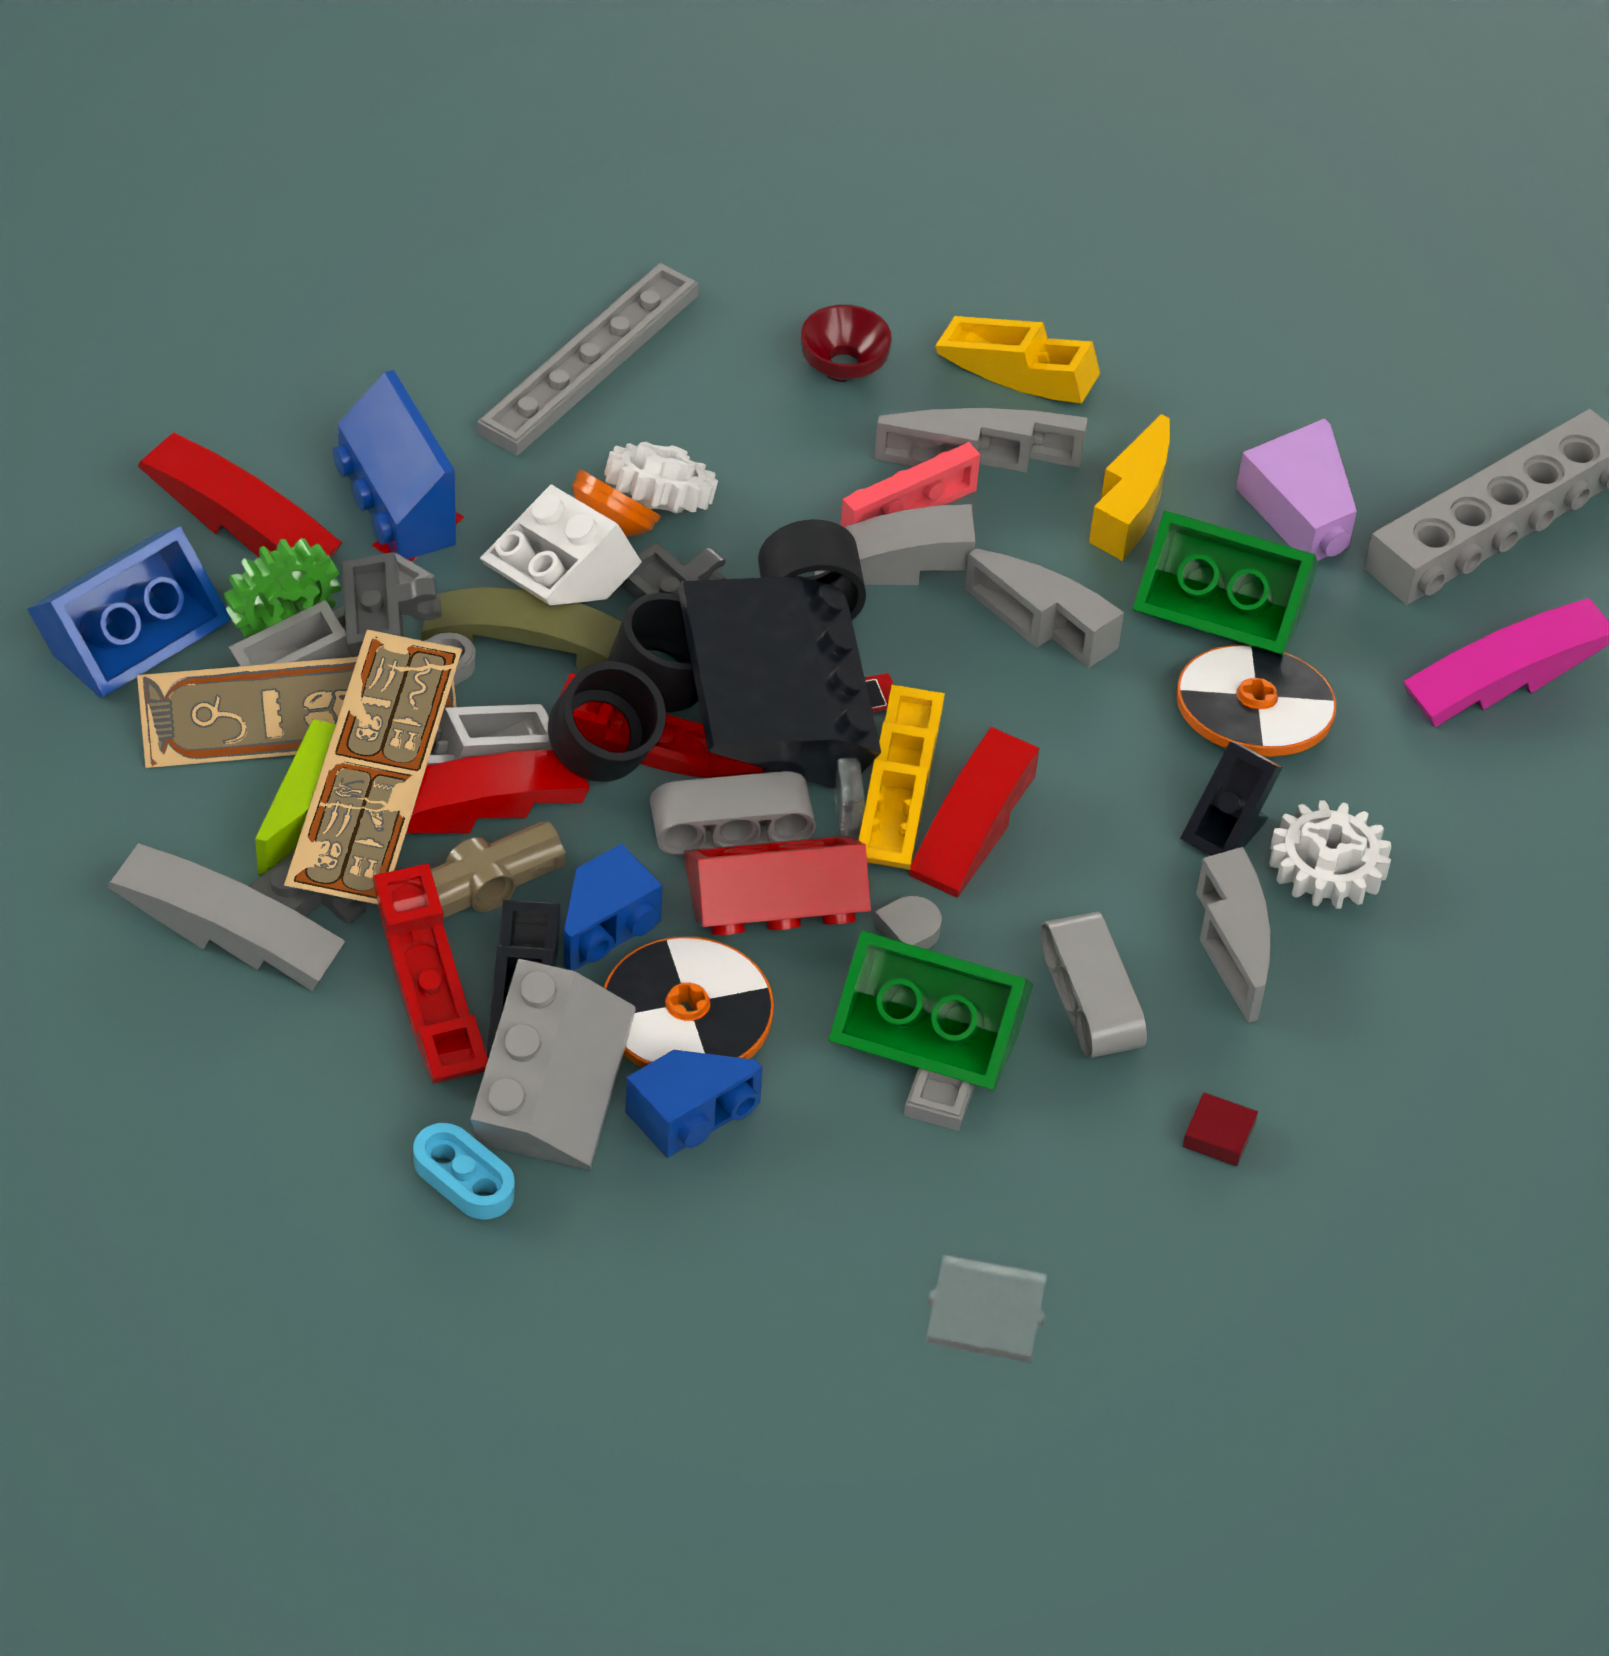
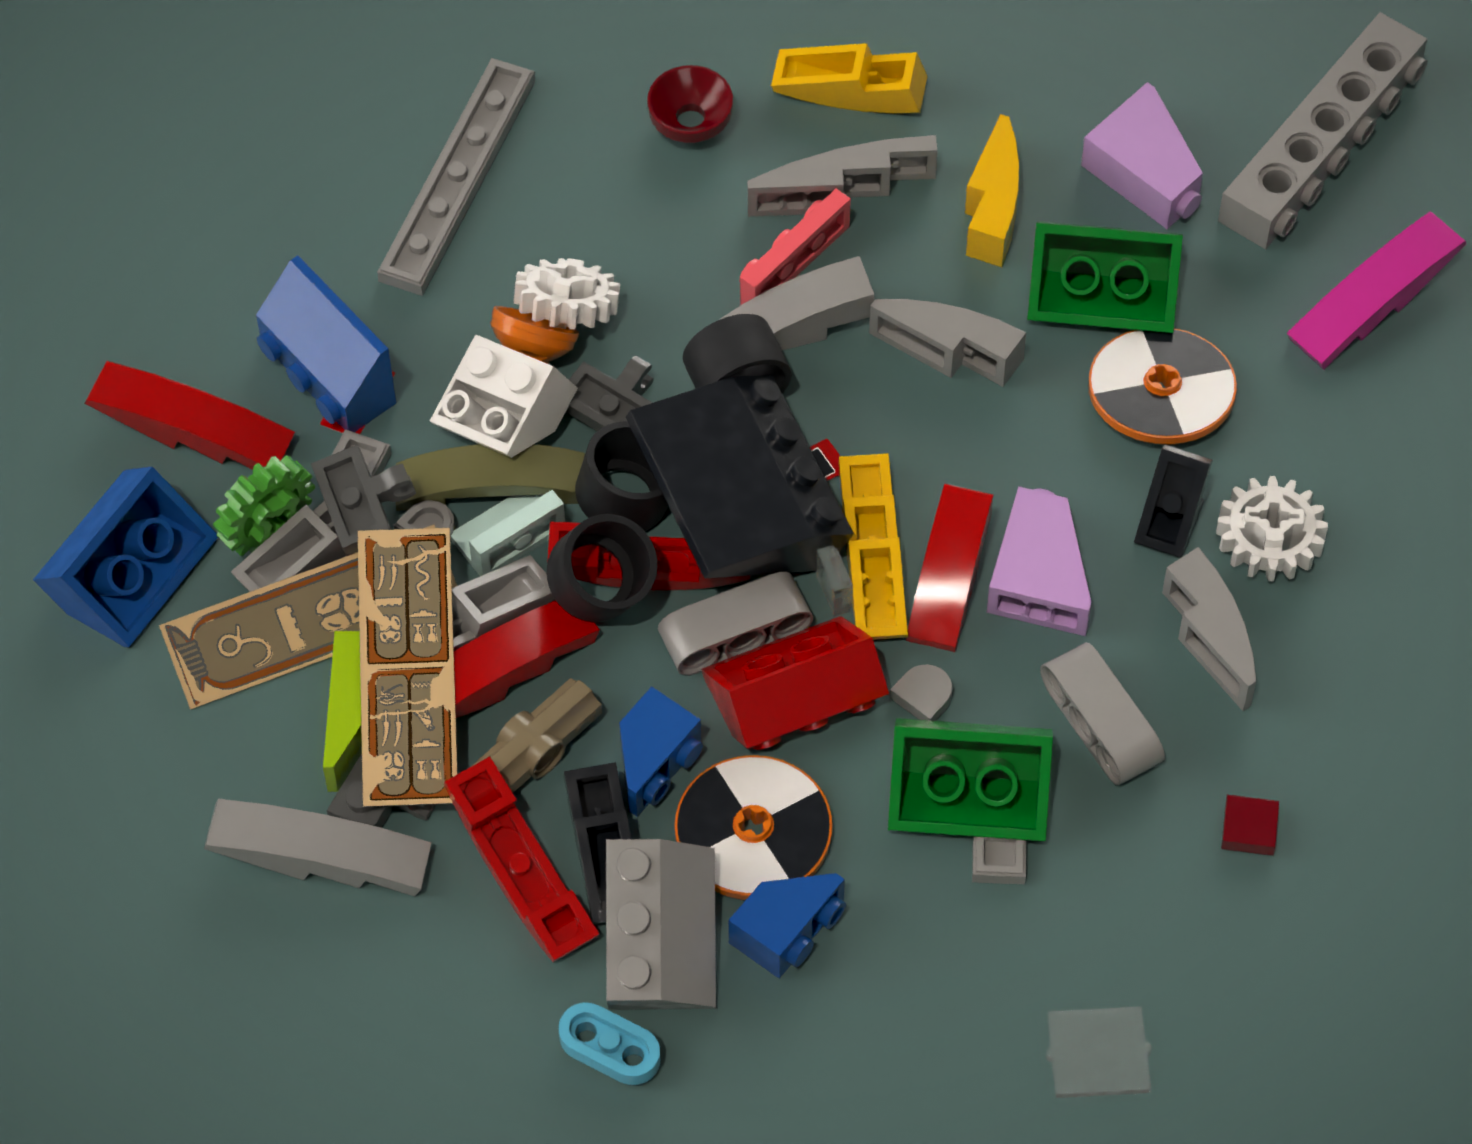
camera: 10 degrees left, 10 degrees up
(527, 677) = (508, 530): none -> light aqua panel
(1069, 833) = (1041, 566): none -> lavender slope

